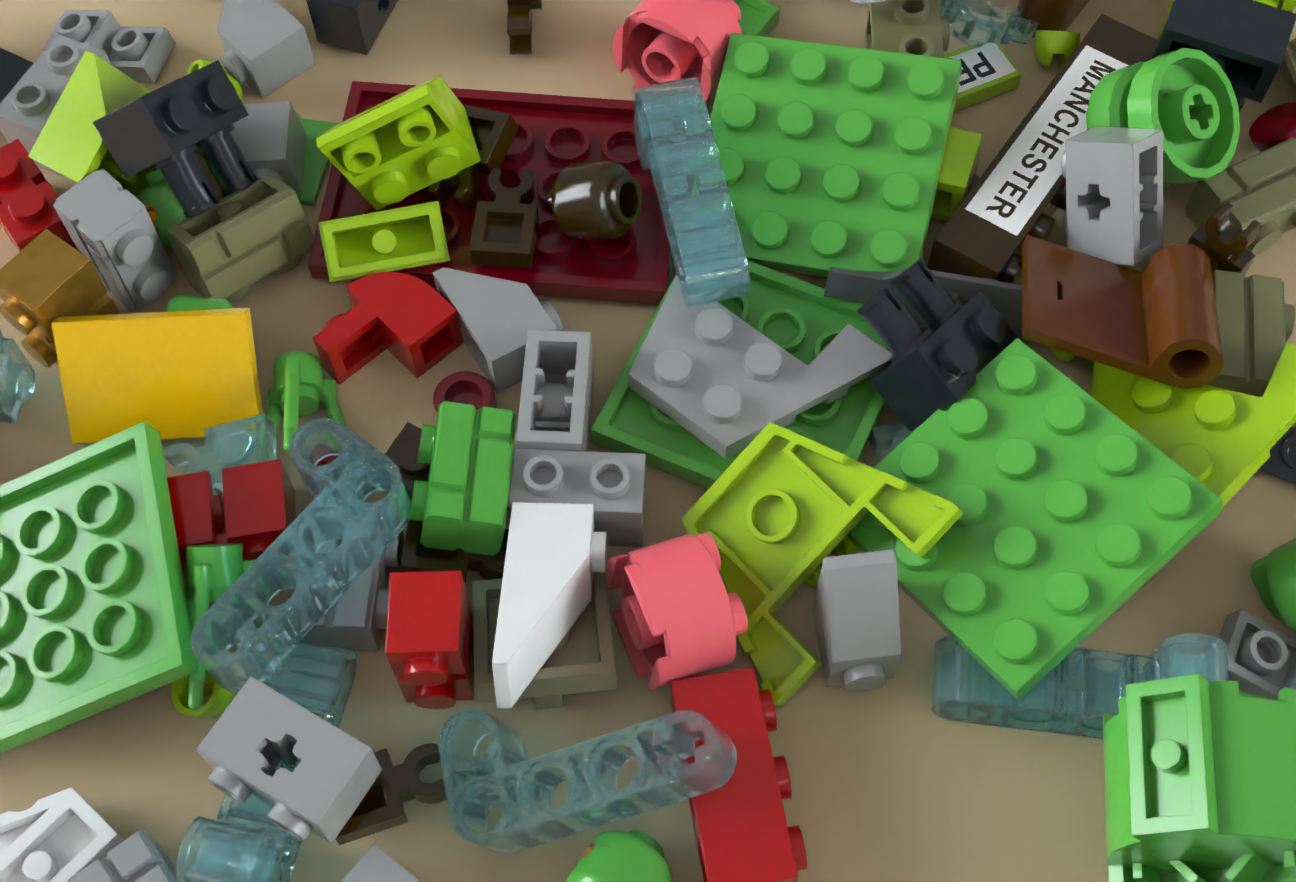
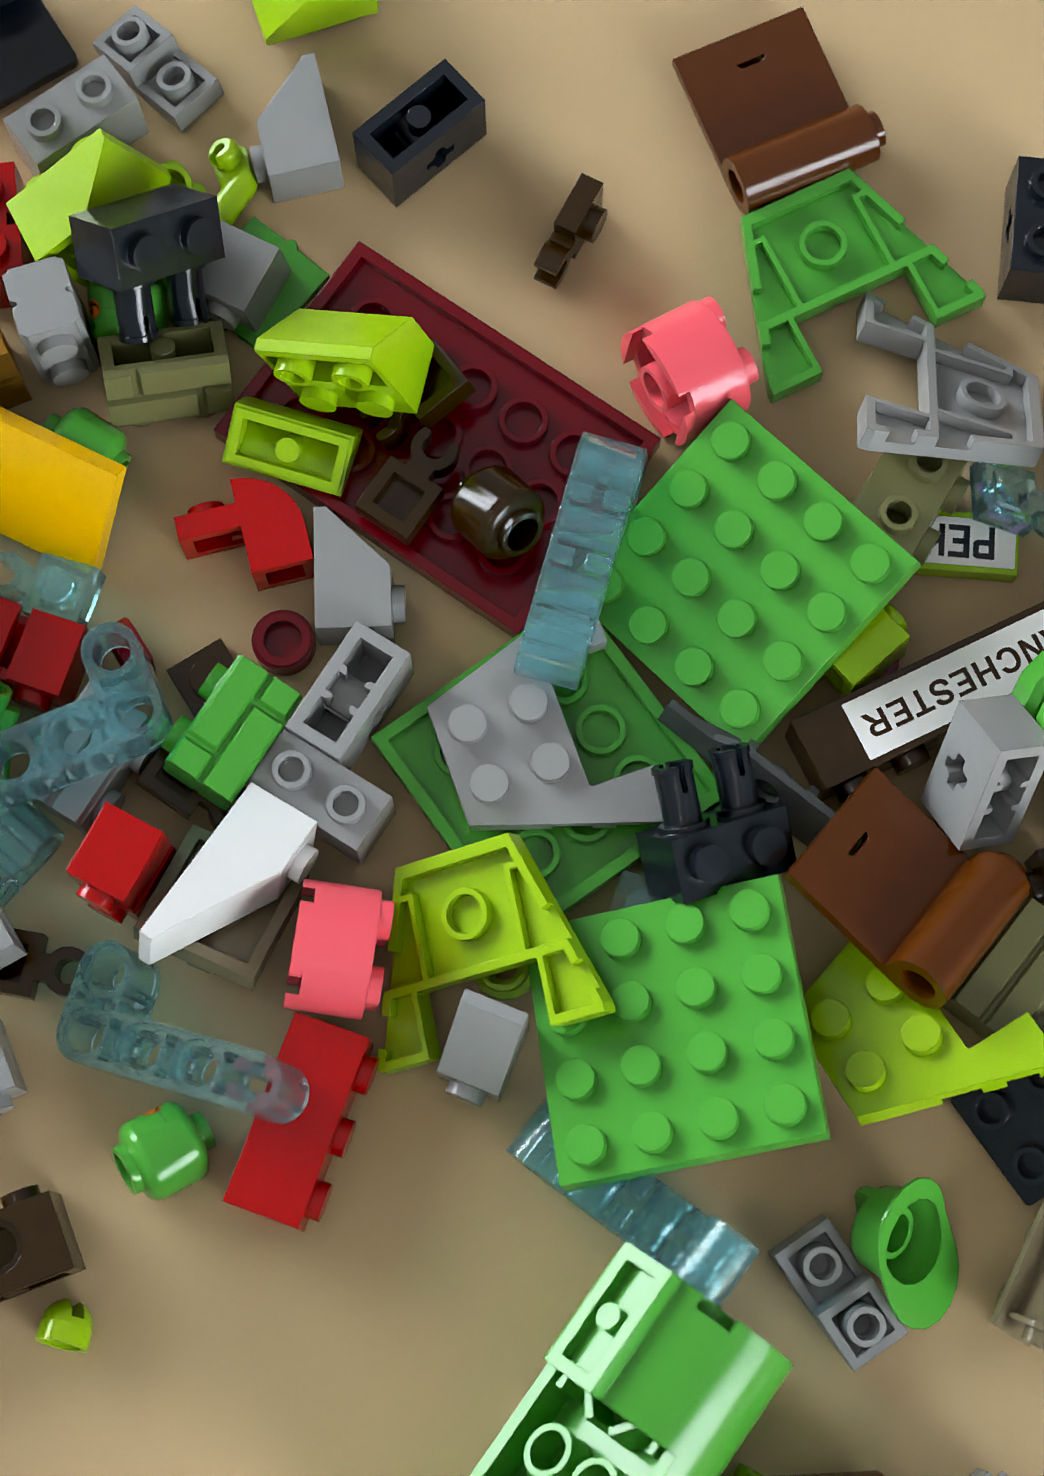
camera: 30 degrees right, 15 degrees up
(299, 391) = (142, 553): bright green plant -> none

